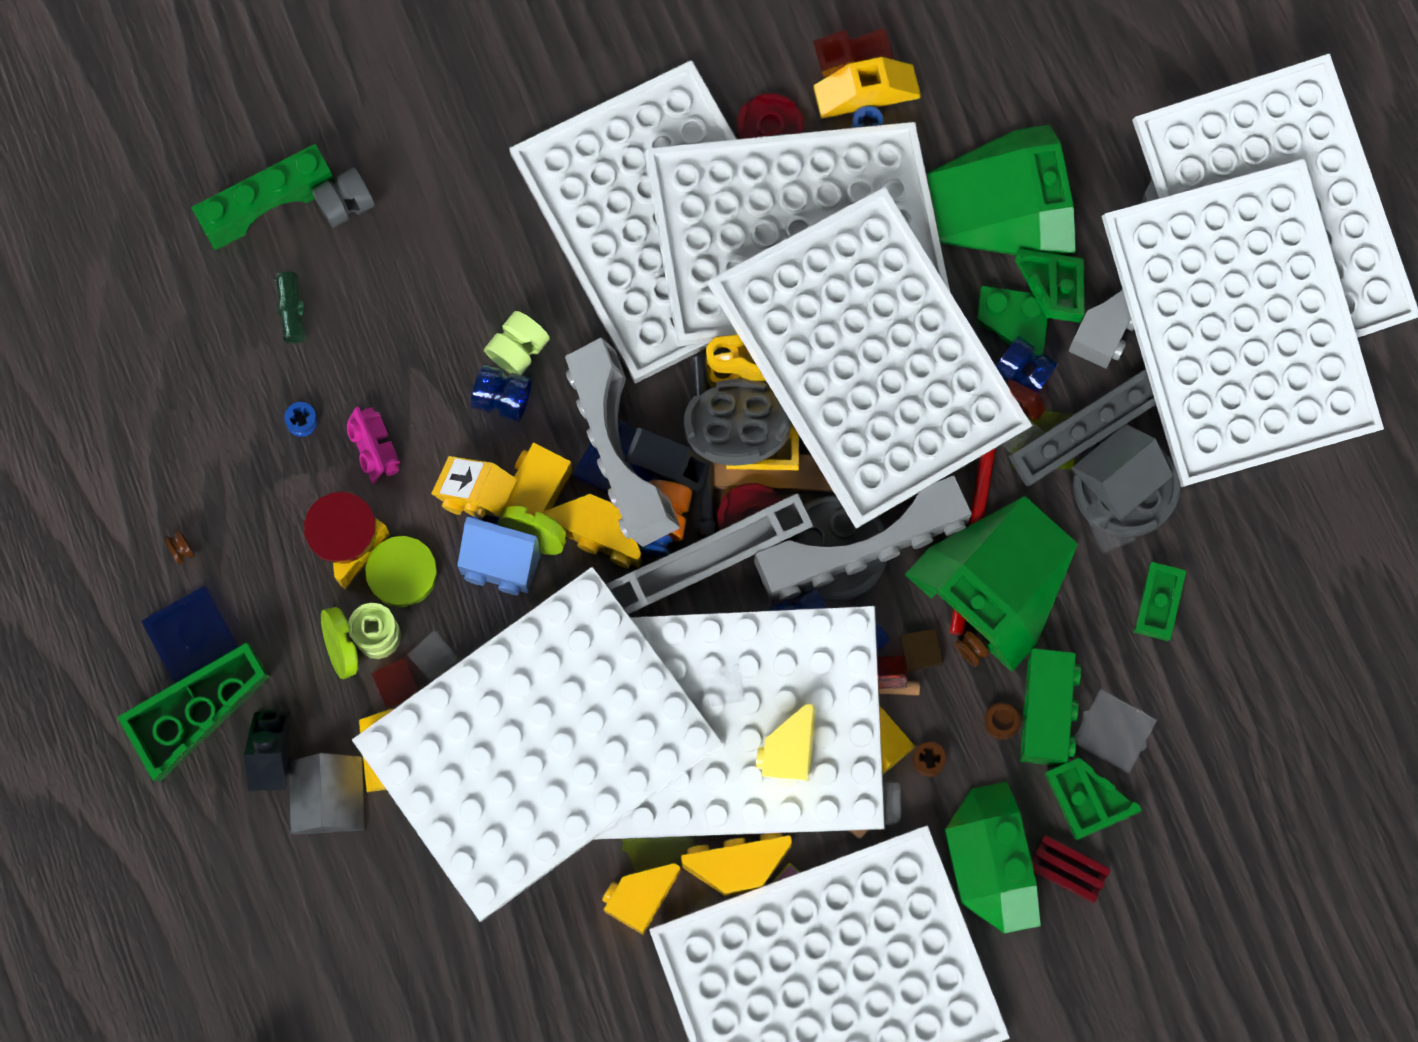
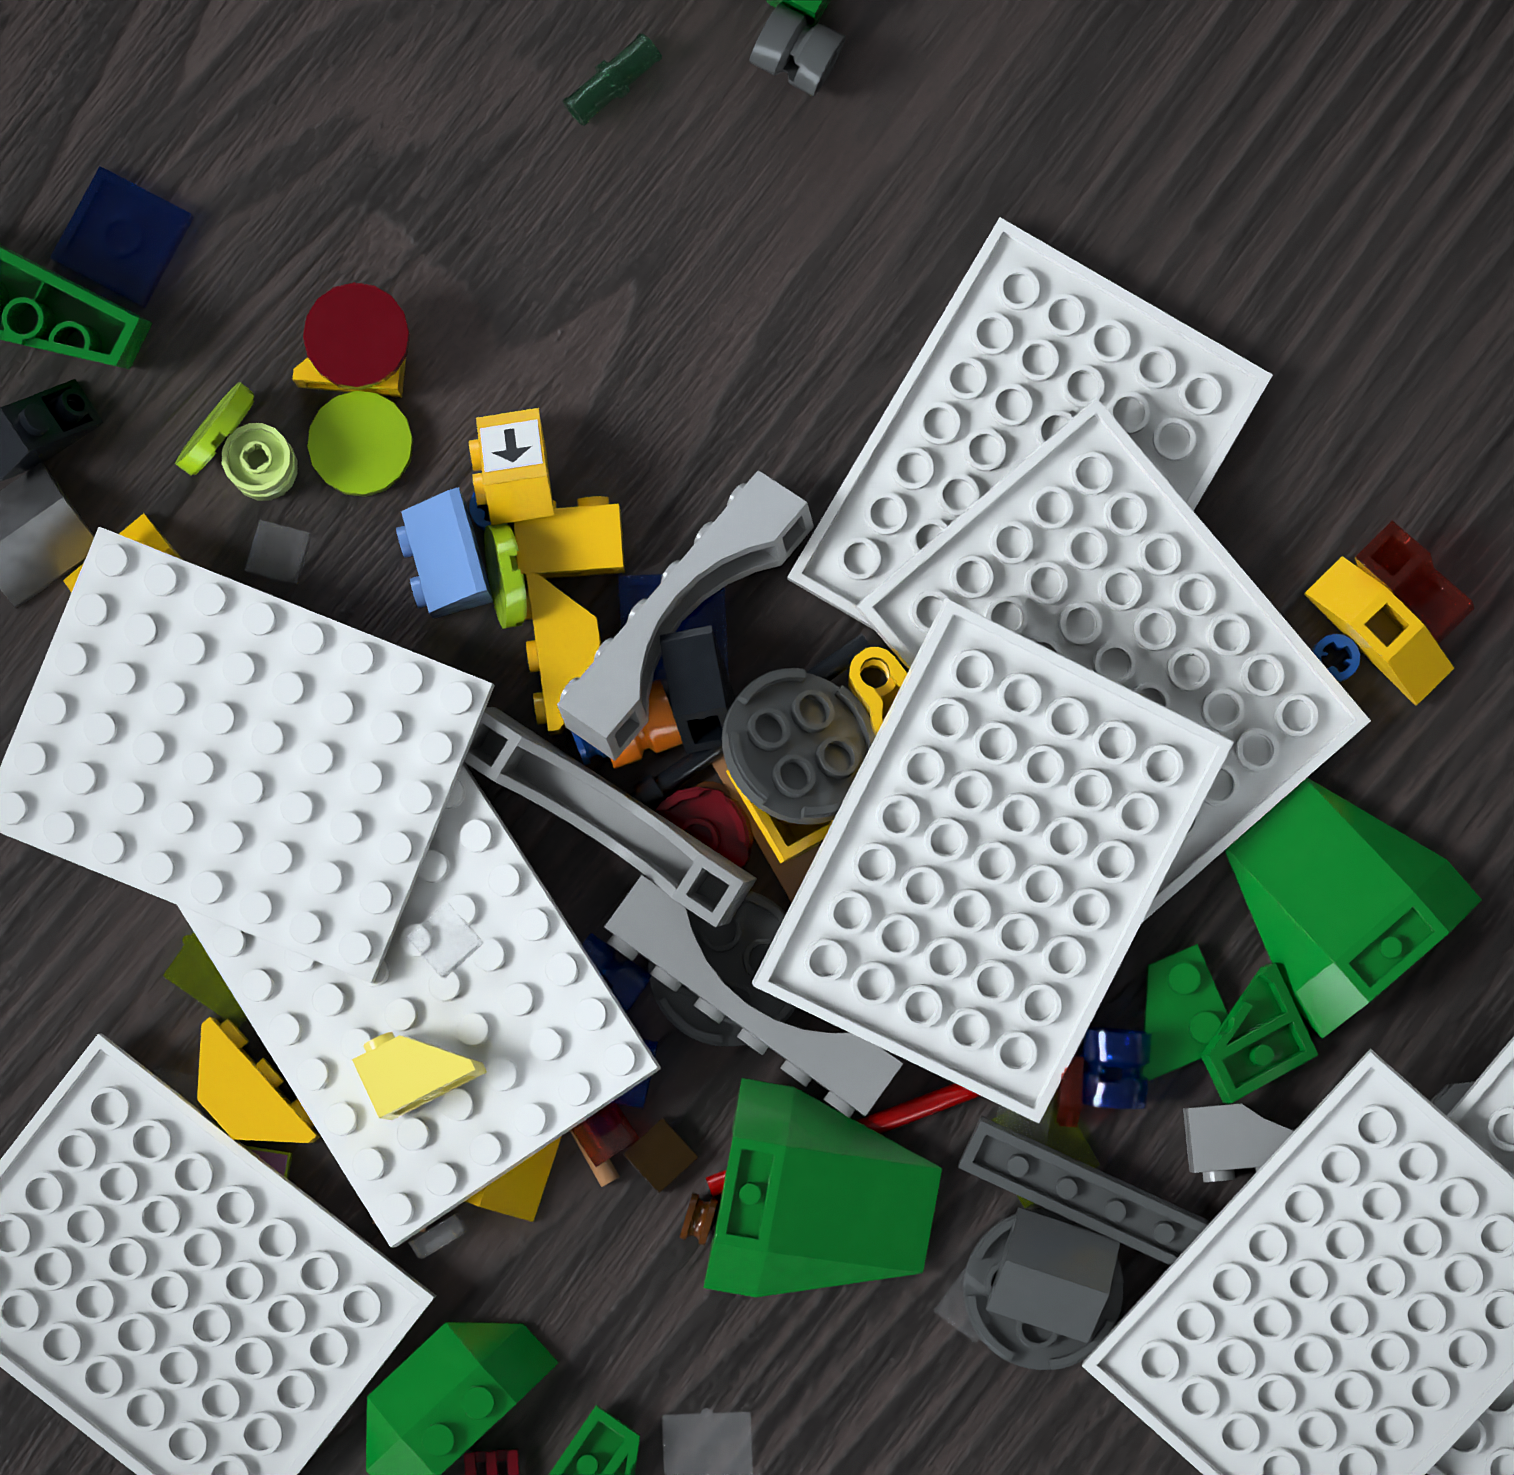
camera: 60 degrees right, 10 degrees up
(179, 547) = (218, 150): reddish brown bush -> none
(312, 421) = (482, 204): blue bush -> none
(365, 430) = (508, 282): dark pink hinge -> none
(395, 682) = (216, 527): clear red tile -> none
(501, 392) = (662, 401): clear blue wheel -> none
(520, 340) = (740, 397): yellowish green wheel -> none
(640, 896) = (134, 996): yellow slope -> none
(769, 116) = (1256, 528): dark red tile -> none
(921, 766) = (511, 1245): reddish brown bush -> none
(1002, 721) = (632, 1311): reddish brown tile -> none
(1049, 707) = (682, 1362): green brick -> none
(1159, 601) = (910, 1421): green plate -> none

